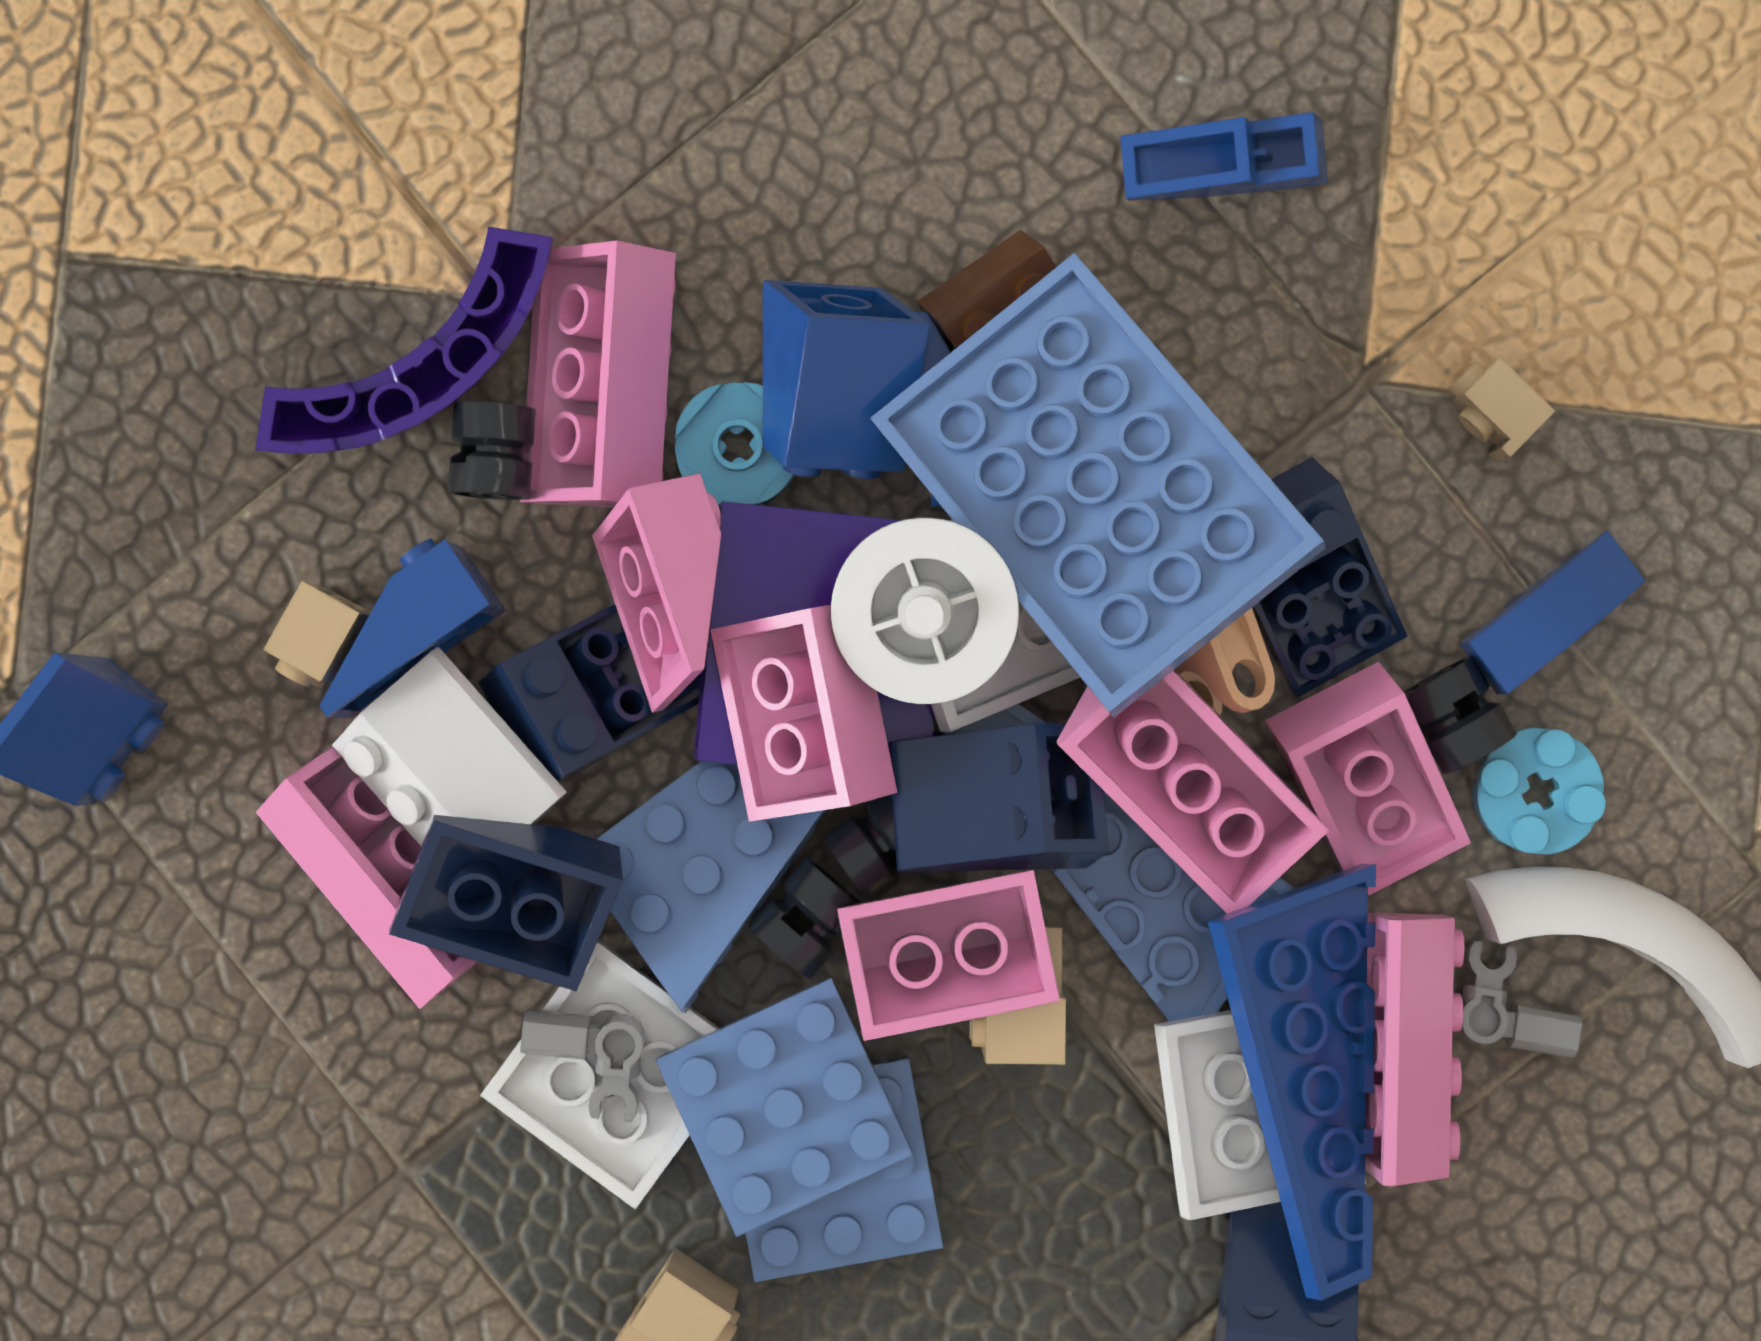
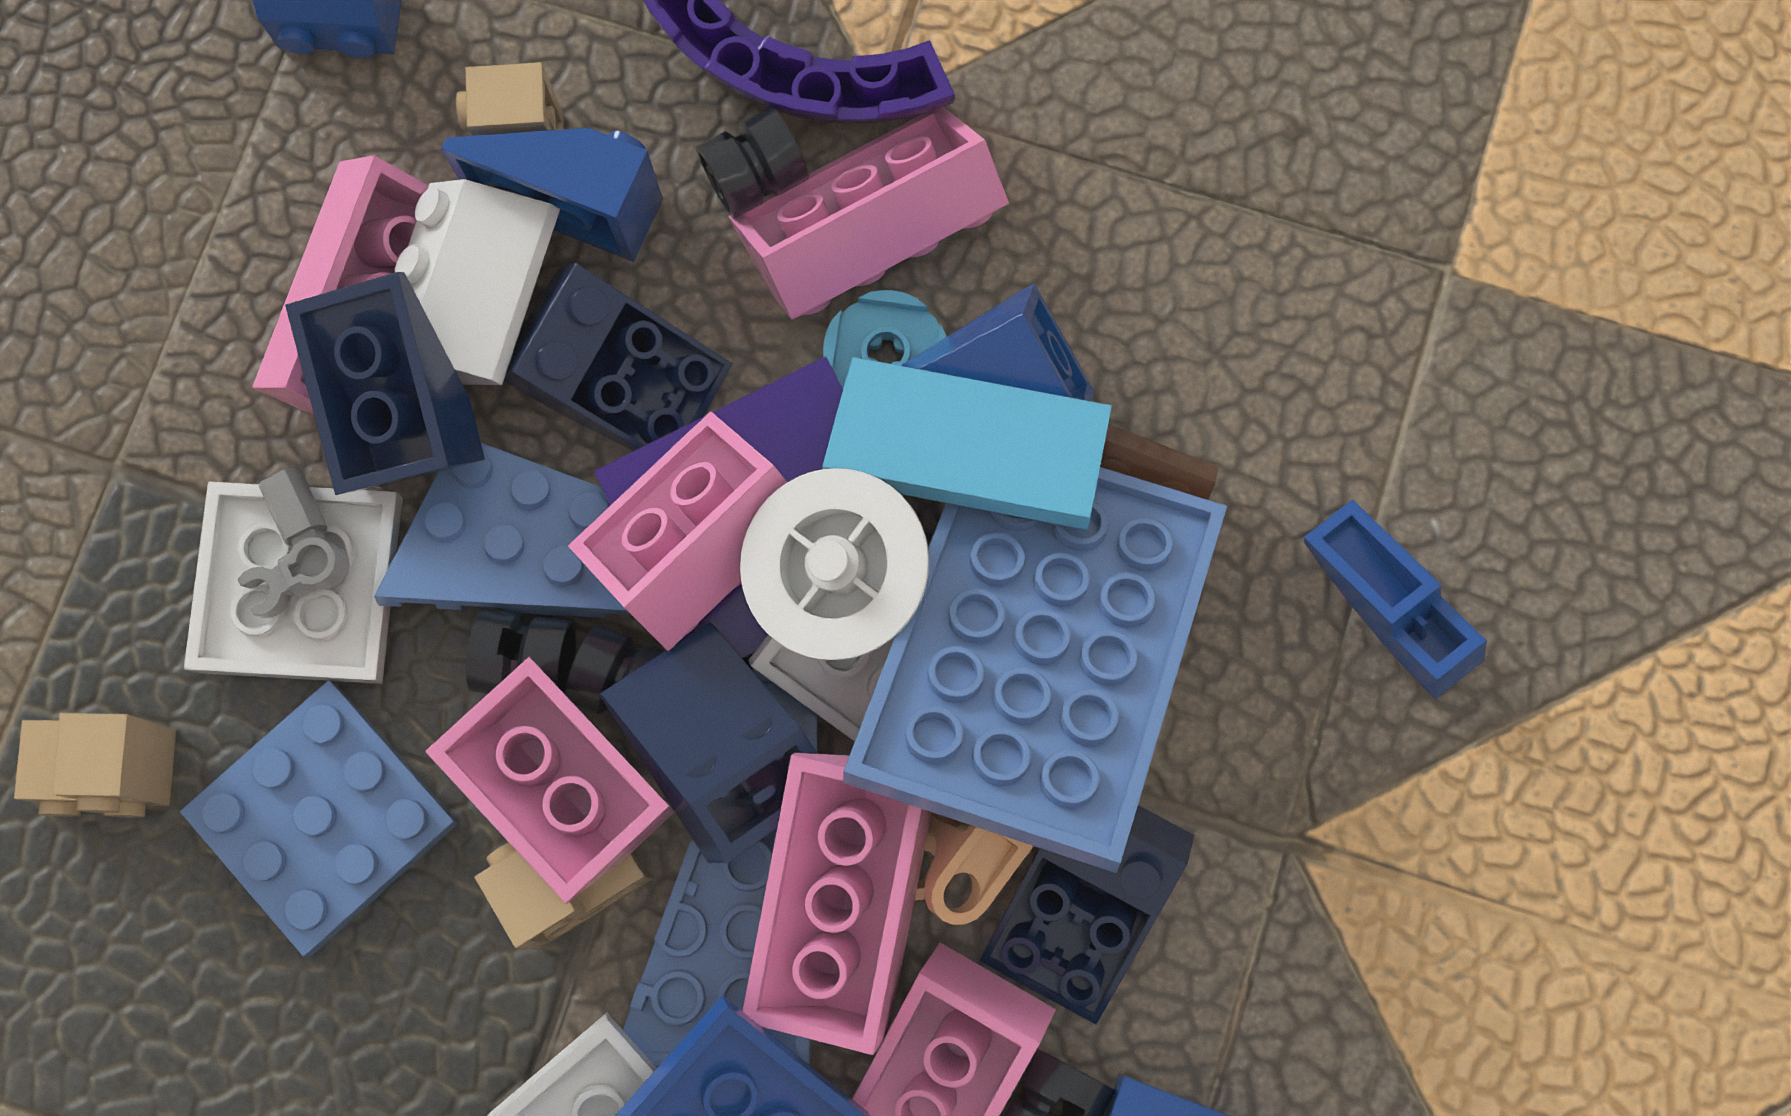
camera: 60 degrees right, 10 degrees down
(662, 571) = (747, 335): bright pink slope -> none
(784, 1106) = (340, 738): medium blue plate -> none
(887, 431) = (970, 442): none -> medium azure tile
(1498, 406) = (1349, 971): tan brick -> none

